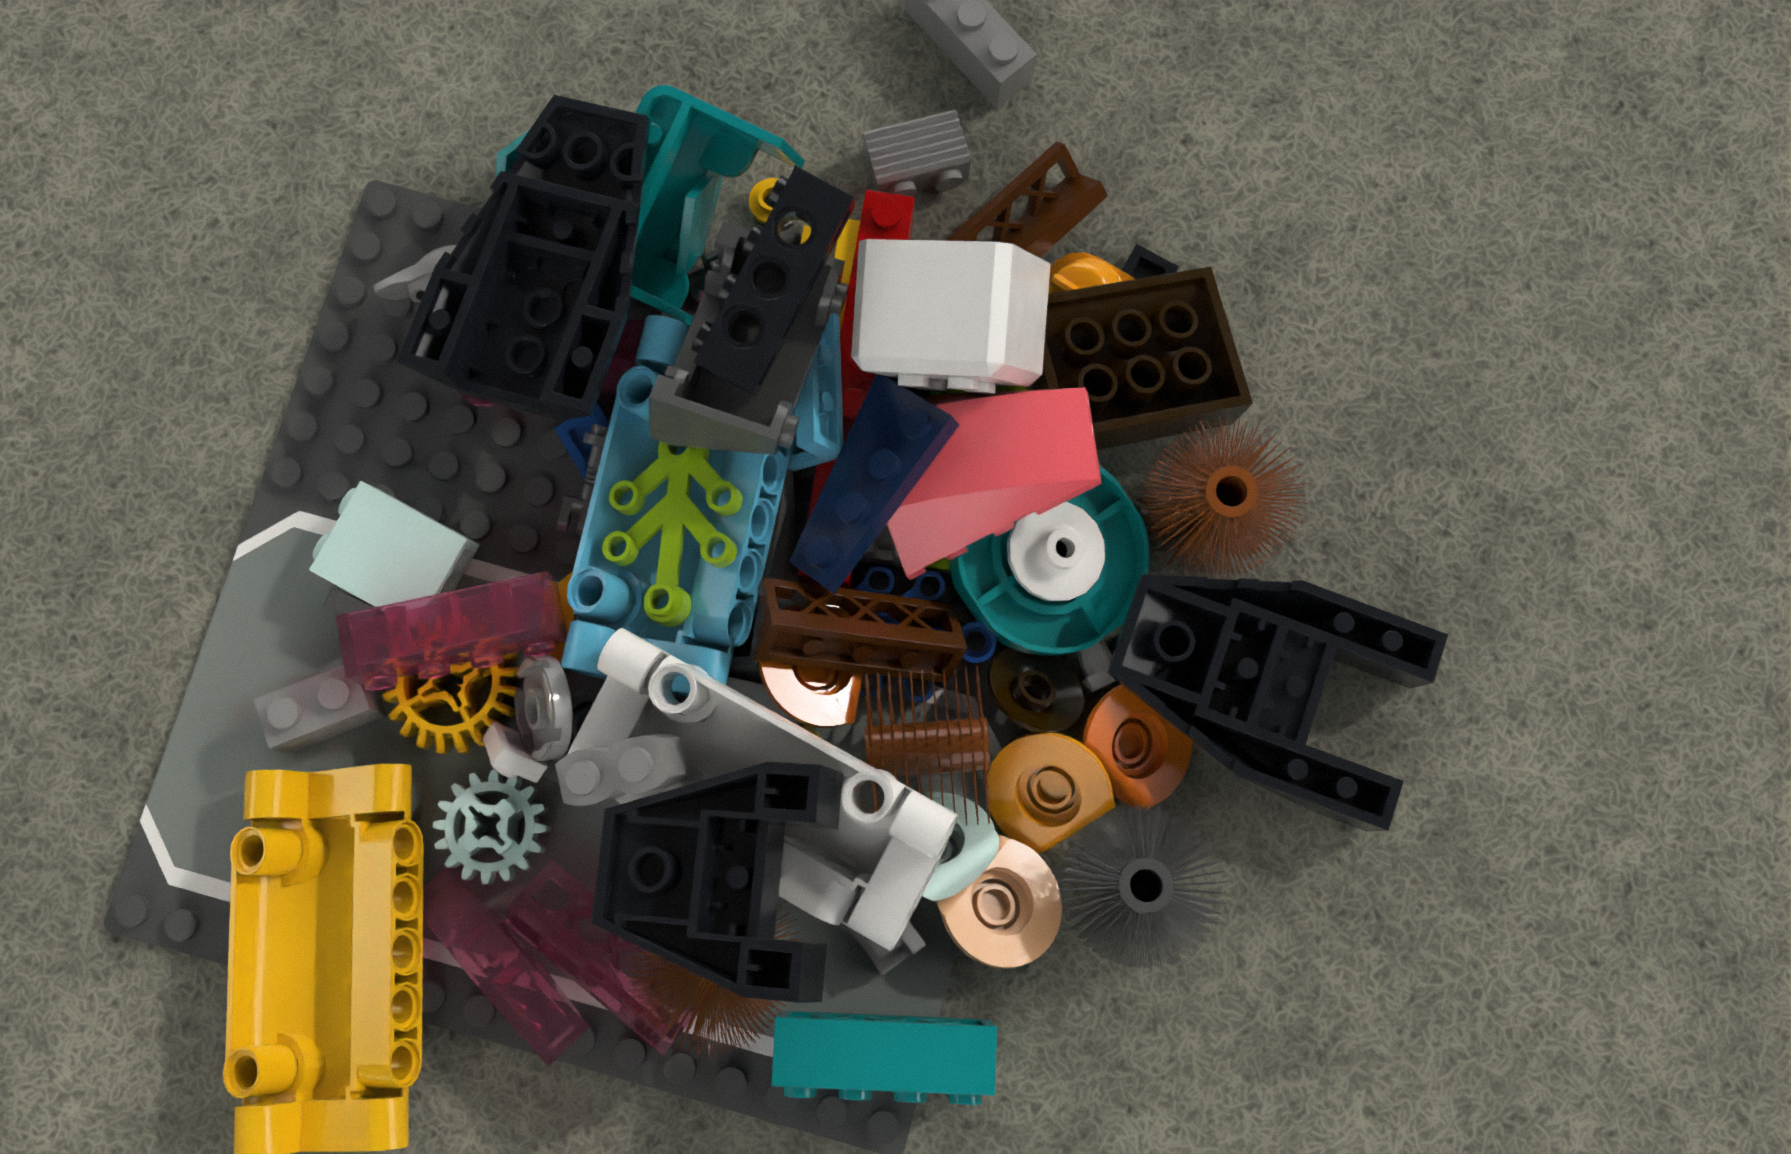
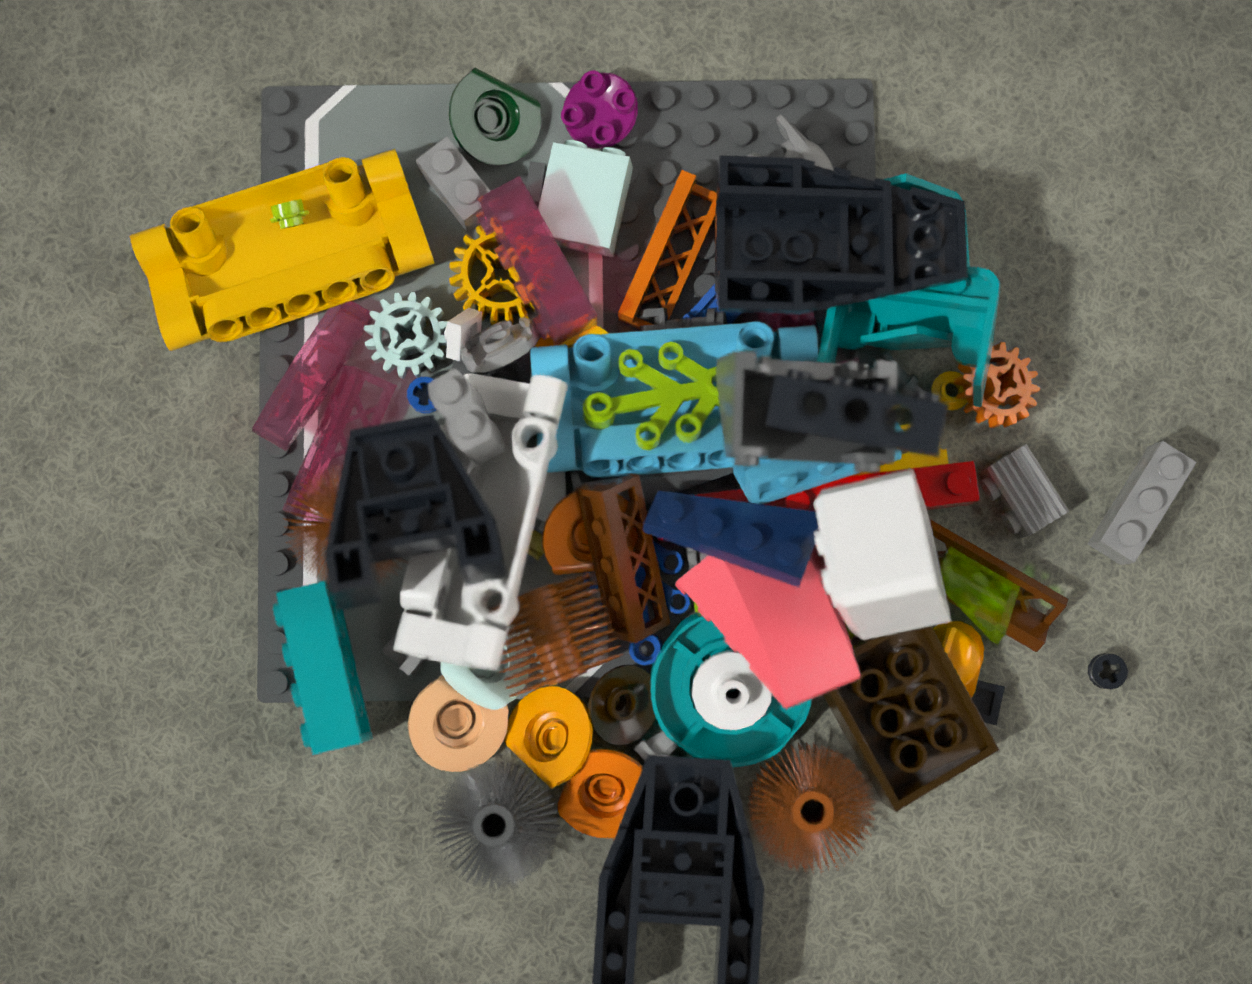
camera: 75 degrees right, 5 degrees up
(252, 638) = (493, 119): none -> hat
(281, 935) = (289, 214): none -> lime plate
(288, 504) = (600, 109): none -> magenta dish
(483, 478) = (660, 243): none -> orange fence
(578, 843) = (414, 401): none -> blue bush
(798, 130) = (1005, 384): none -> orange gear
(1035, 223) = (979, 593): none -> clear neon green wing
(1159, 119) = (1096, 666): none -> black bush

